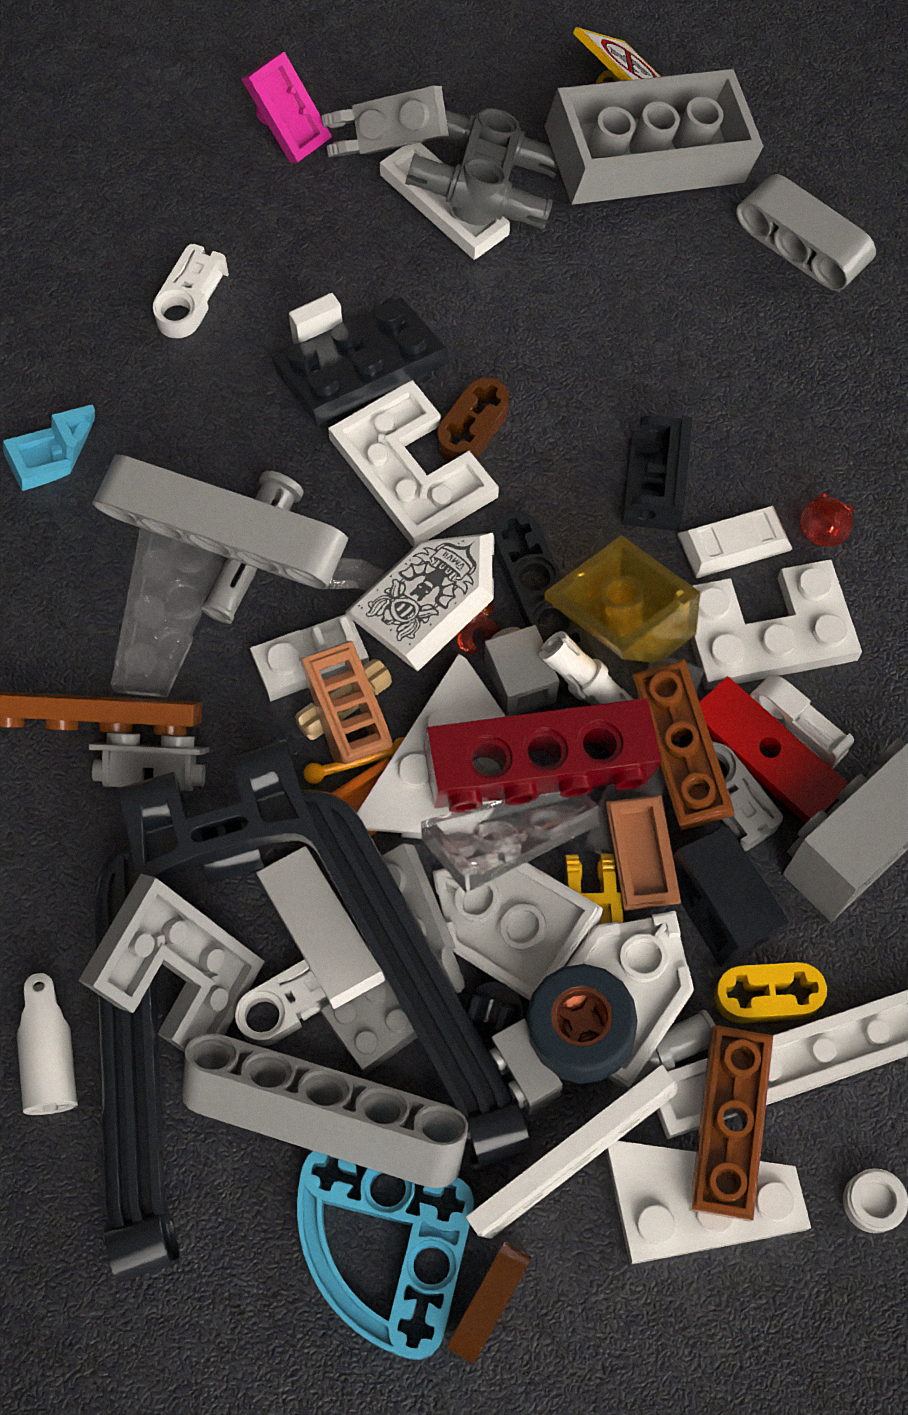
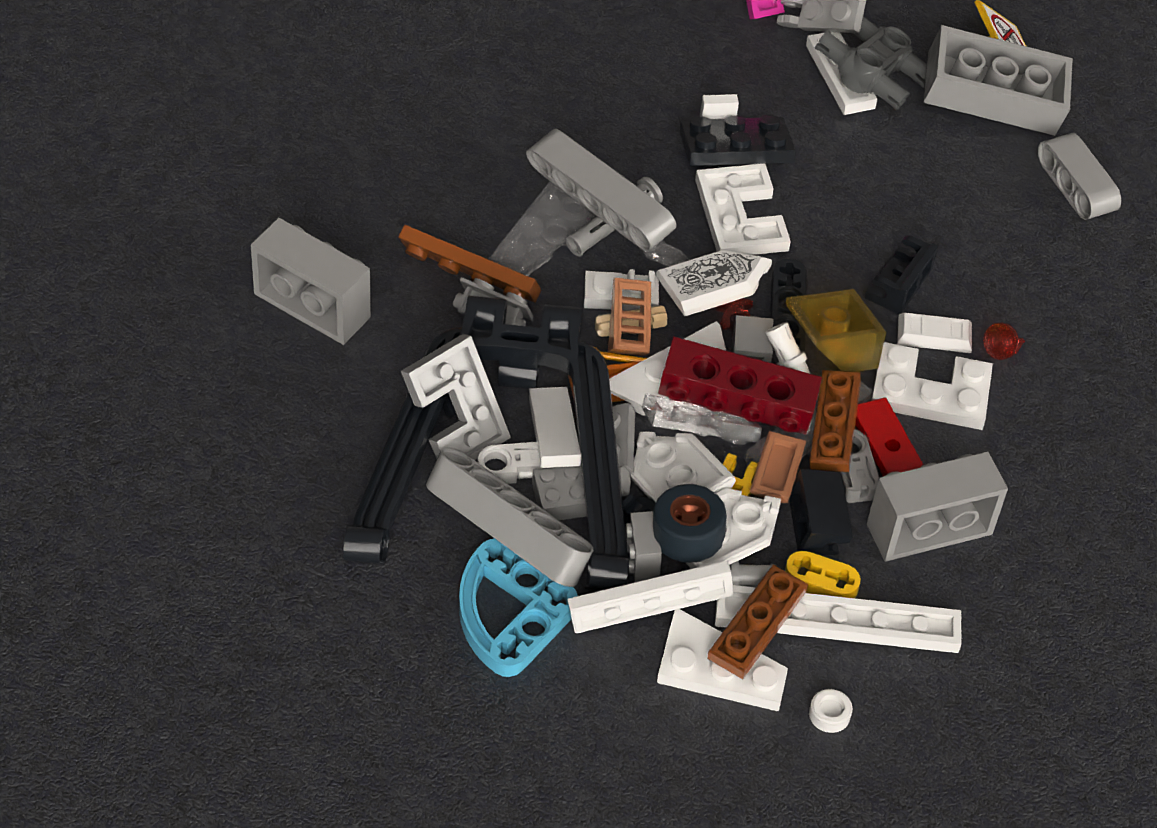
camera: 20 degrees right, 15 degrees down
(45, 1051) = (356, 428): white piece -> none
(49, 452) = (513, 124): medium azure slope -> none
(189, 286) = (647, 63): white piece -> none
(464, 416) = (796, 205): reddish brown beam -> none
(489, 1303) = (559, 656): reddish brown beam -> none
(802, 719) = (920, 434): white piece -> none

